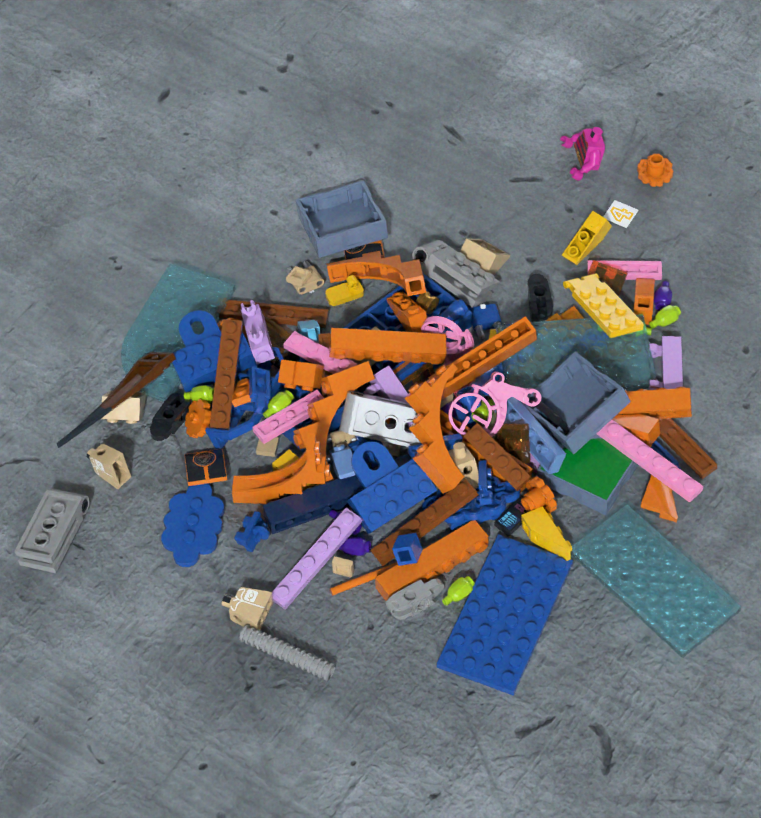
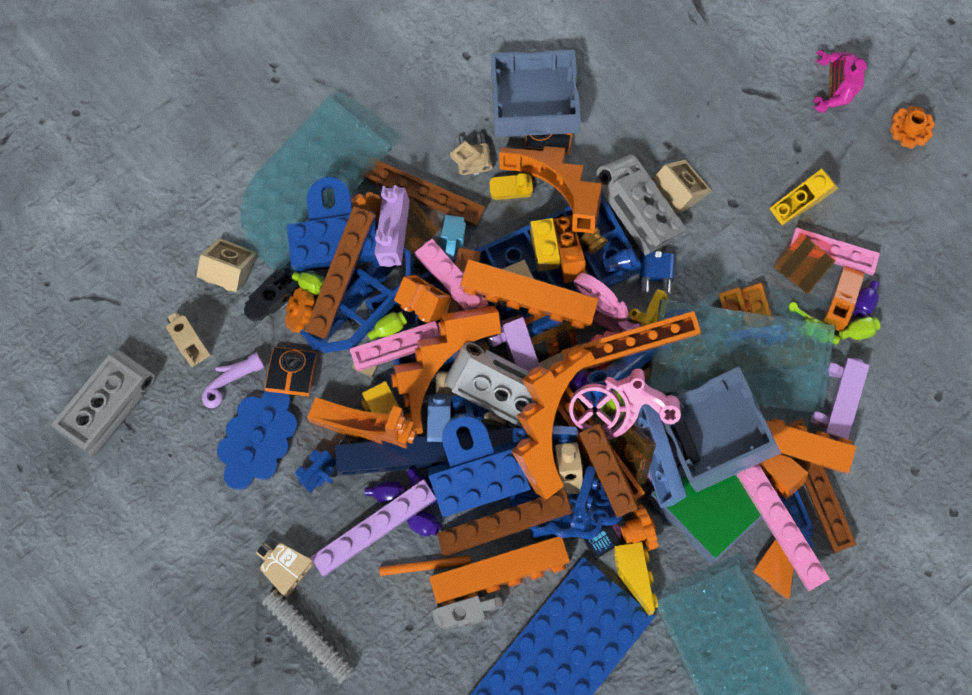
camera: 15 degrees right, 20 degrees up
(140, 376) = (246, 244): reddish brown plate -> none
(153, 483) = (231, 373): none -> lavender plant
(241, 393) = (354, 299): orange plate -> none
(259, 388) = (370, 304): blue hinge -> none
(314, 532) = (386, 491): none -> dark purple plant
(343, 567) = (400, 547): tan tile -> none
(388, 313) = (545, 244): none -> yellow brick
(407, 549) = (473, 556): blue brick -> none
(458, 590) = (517, 616): lime plant -> none
(539, 298) = (727, 245): black piece -> none
(604, 306) = (793, 303): yellow hinge -> none
(620, 214) = (854, 171): white sticker -> none

